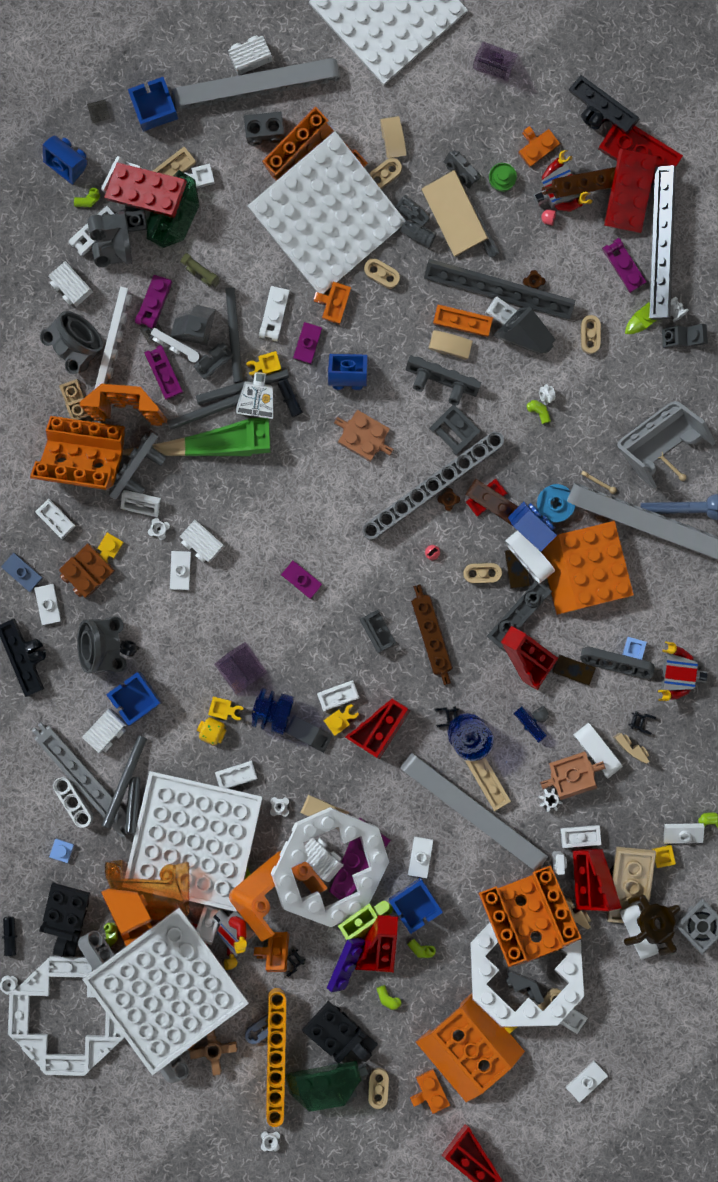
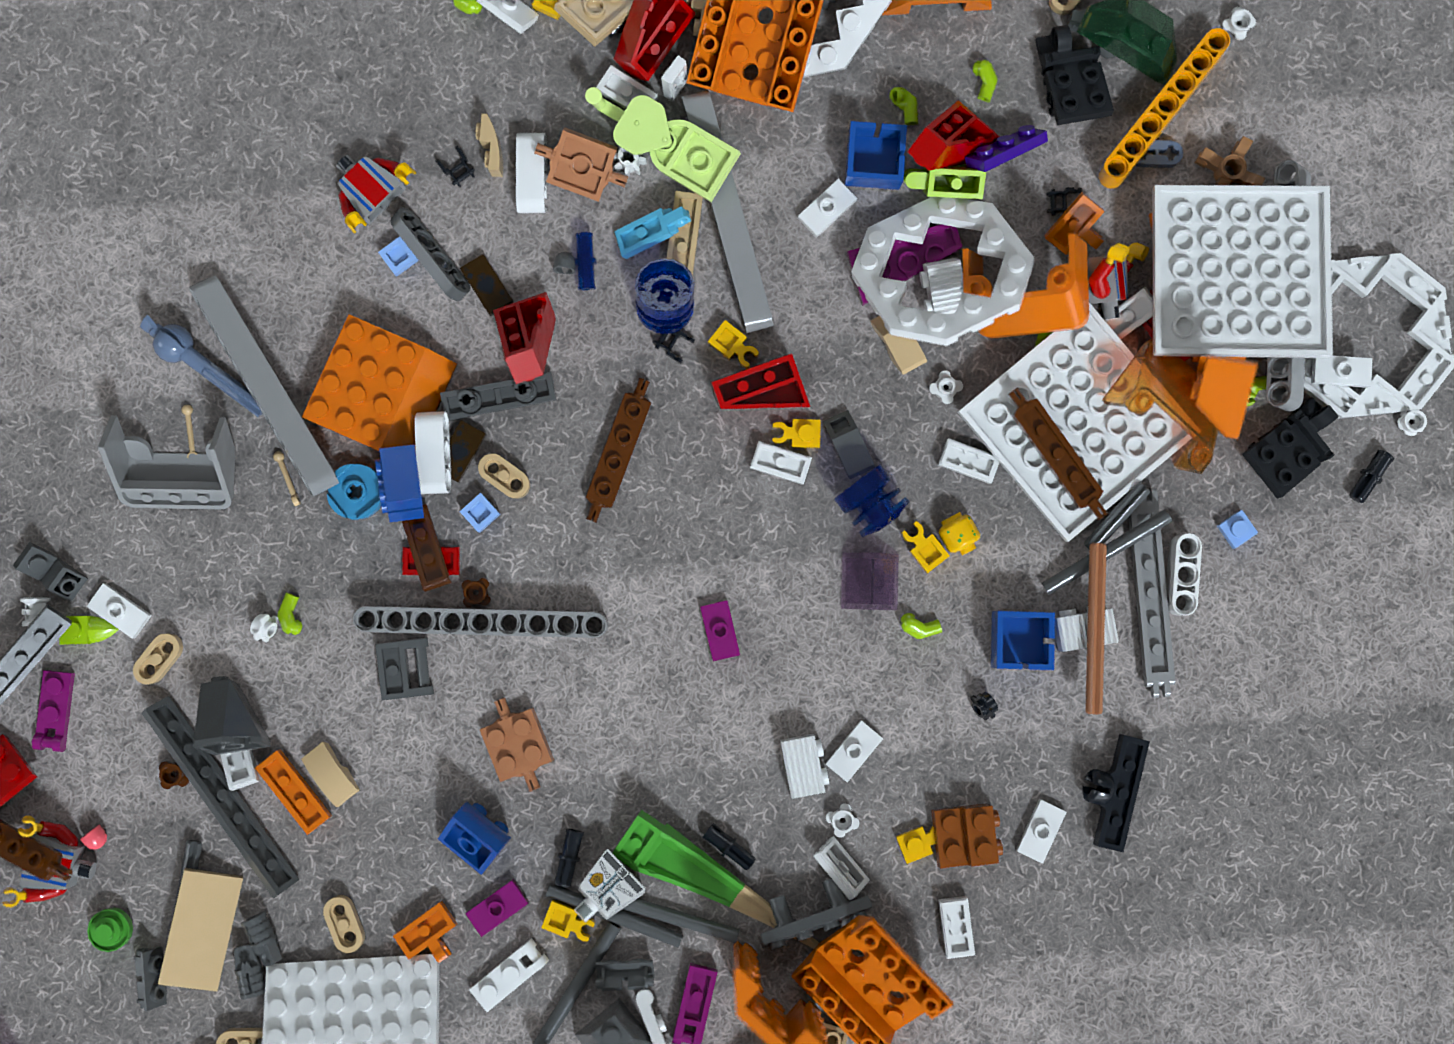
camera: 150 degrees left, 0 degrees up
(21, 572) = (1043, 893): sand blue plate -> none
(68, 981) = (1342, 371): none -> white plate
(100, 645) = (1016, 733): dark grey piece -> none
(100, 734) = (1096, 628): none -> nougat axle
(191, 813) = (1057, 453): none -> reddish brown plate
(193, 662) = (917, 628): none -> lime arm
(208, 468) = (728, 846): none -> black axle
(377, 631) = (678, 501): dark grey hinge -> none
(416, 740) = (730, 341): none -> yellow plate
(435, 555) = (542, 538): coral hinge -> none
(450, 378) = (361, 733): dark grey plate -> none
(479, 543) = (480, 512): none -> light blue plate
(507, 768) = (650, 230): none -> medium azure hinge
(514, 826) = (692, 159): none -> yellowish green plate
(538, 146) = (39, 934): orange plate -> none
(632, 343) = (119, 610): none -> white plate

